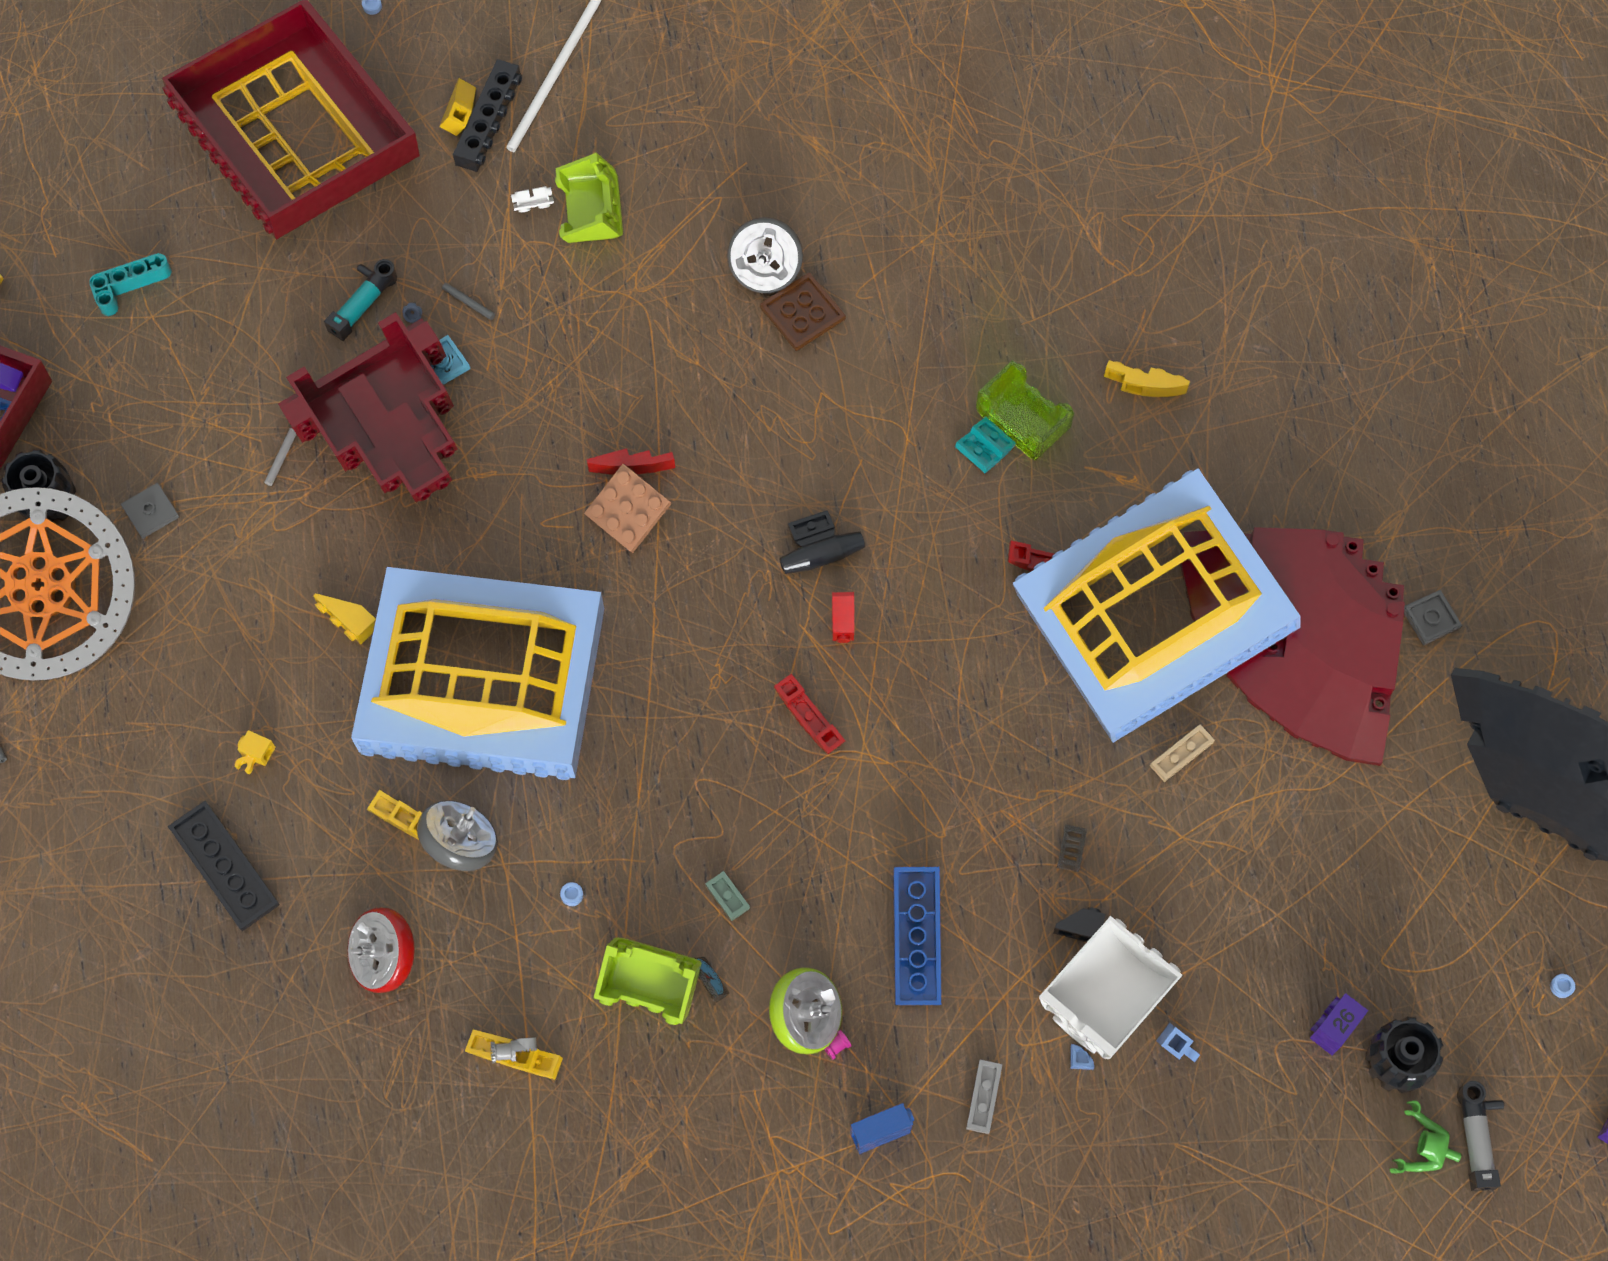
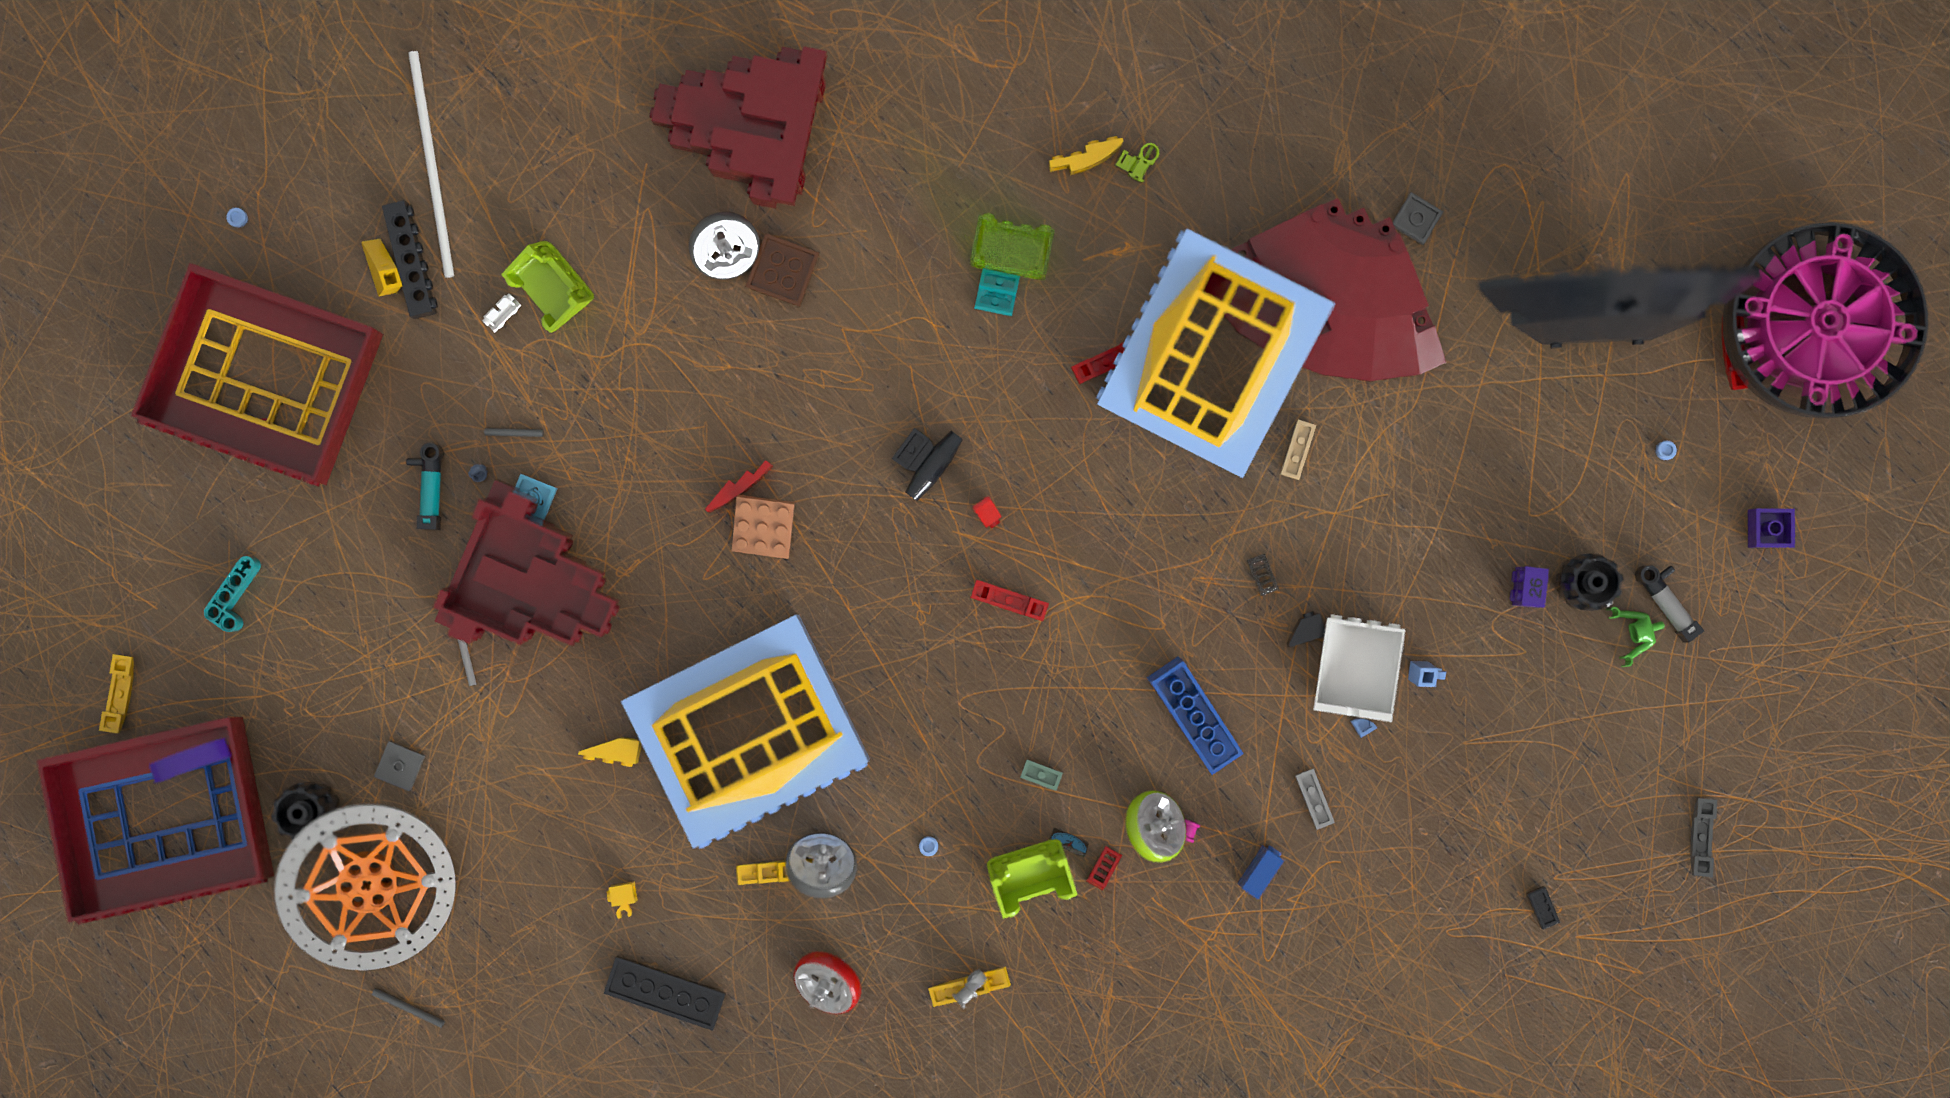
camera: 35 degrees left, 20 degrees up
(713, 1041) = (1101, 885): none -> red slope
(861, 172) = (749, 120): none -> dark red panel
(1190, 417) = (1136, 166): none -> lime piece

